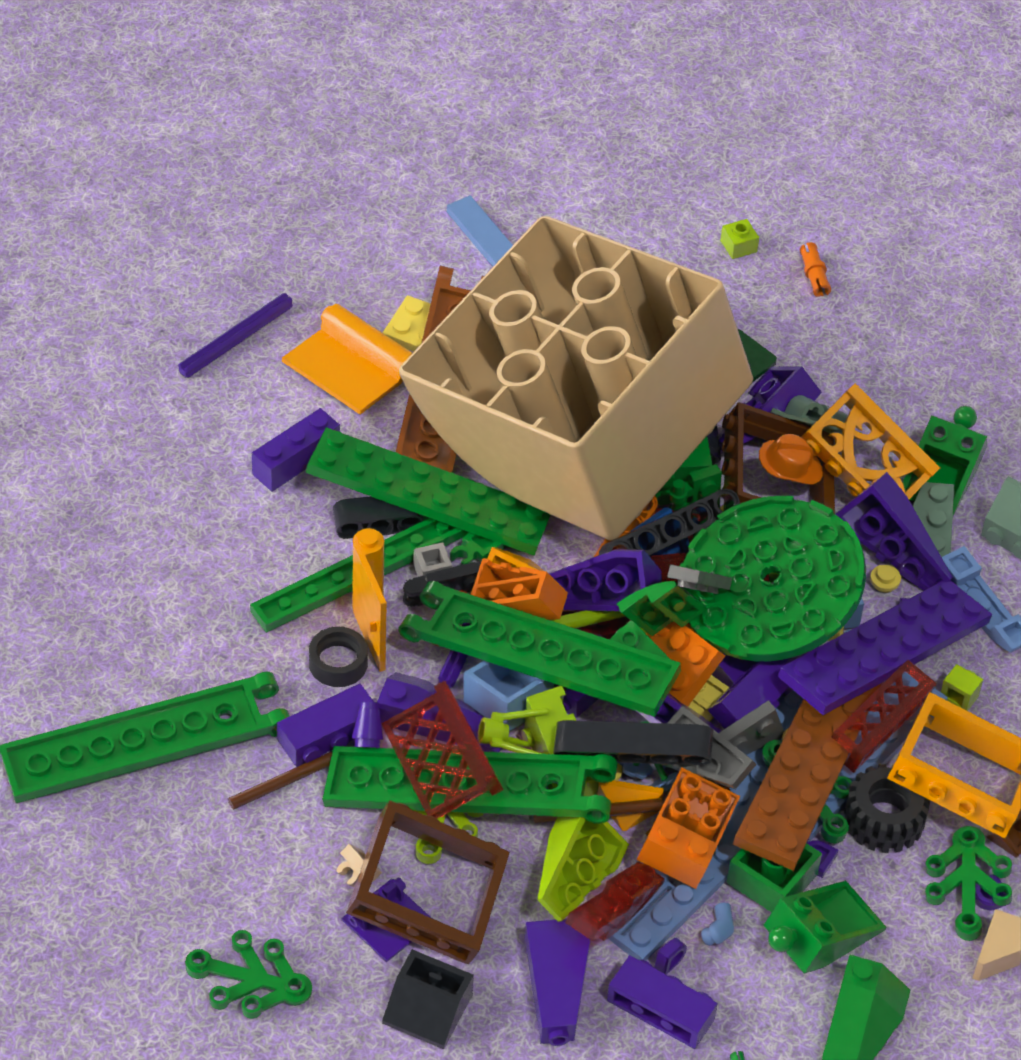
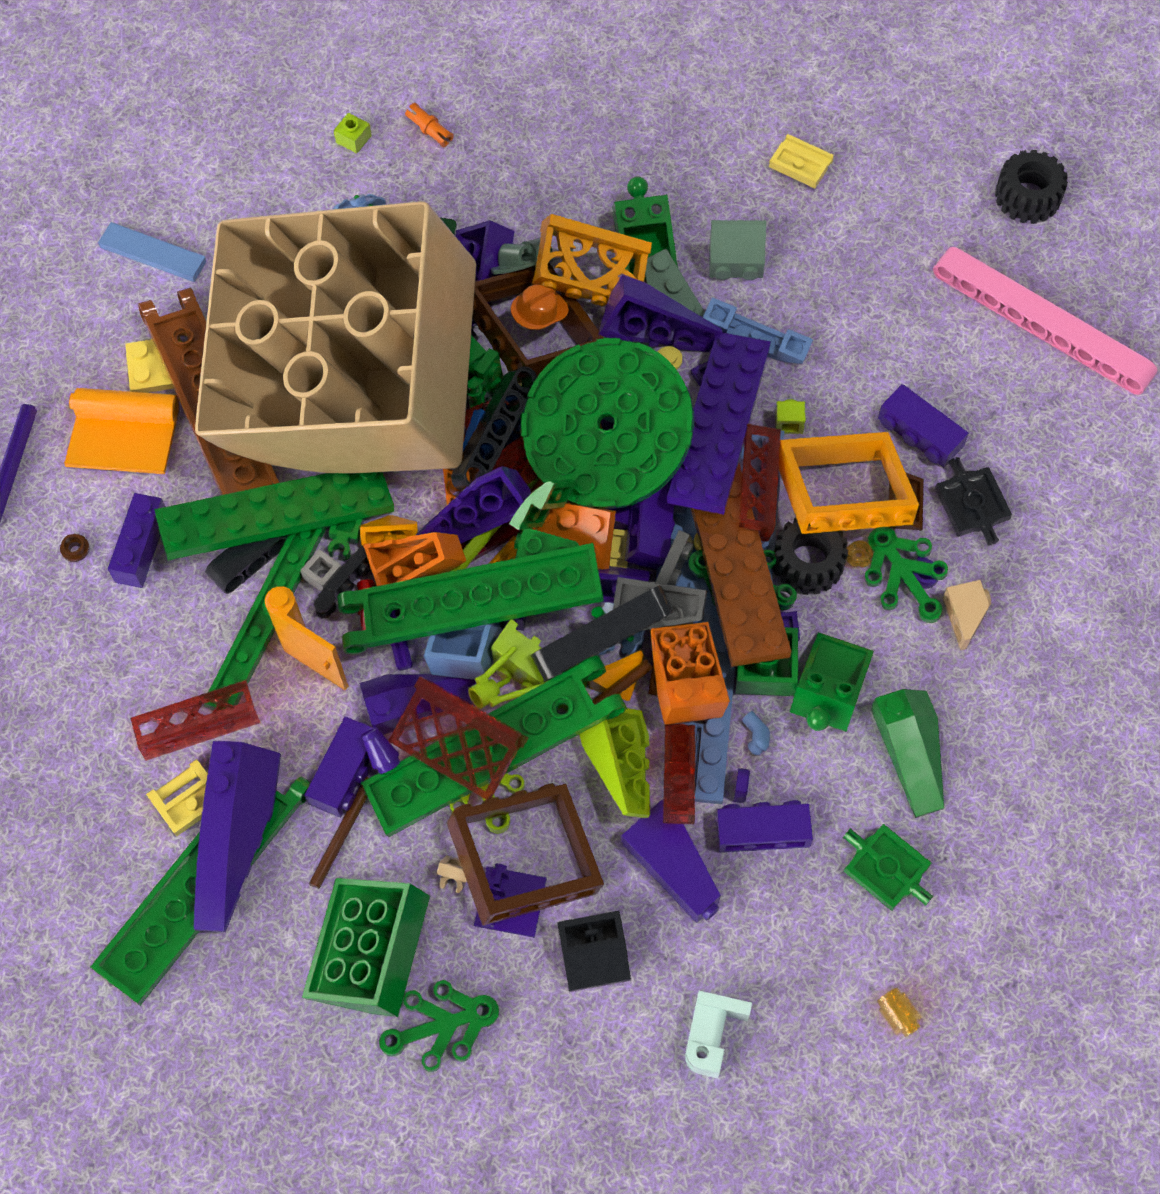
camera: 30 degrees left, 15 degrees up
(178, 677) = (188, 806): none -> light yellow plate
(203, 699) = (234, 816): none -> dark purple wedge
(230, 620) = (195, 730): none -> clear red fence
(237, 420) = (74, 540): none -> reddish brown plate
(239, 875) = (367, 946): none -> green slope
(332, 675) = (312, 721): black tyre -> none
(699, 580) = (555, 465): dark grey wing -> none
(940, 832) = (859, 547): none -> clear yellow plate

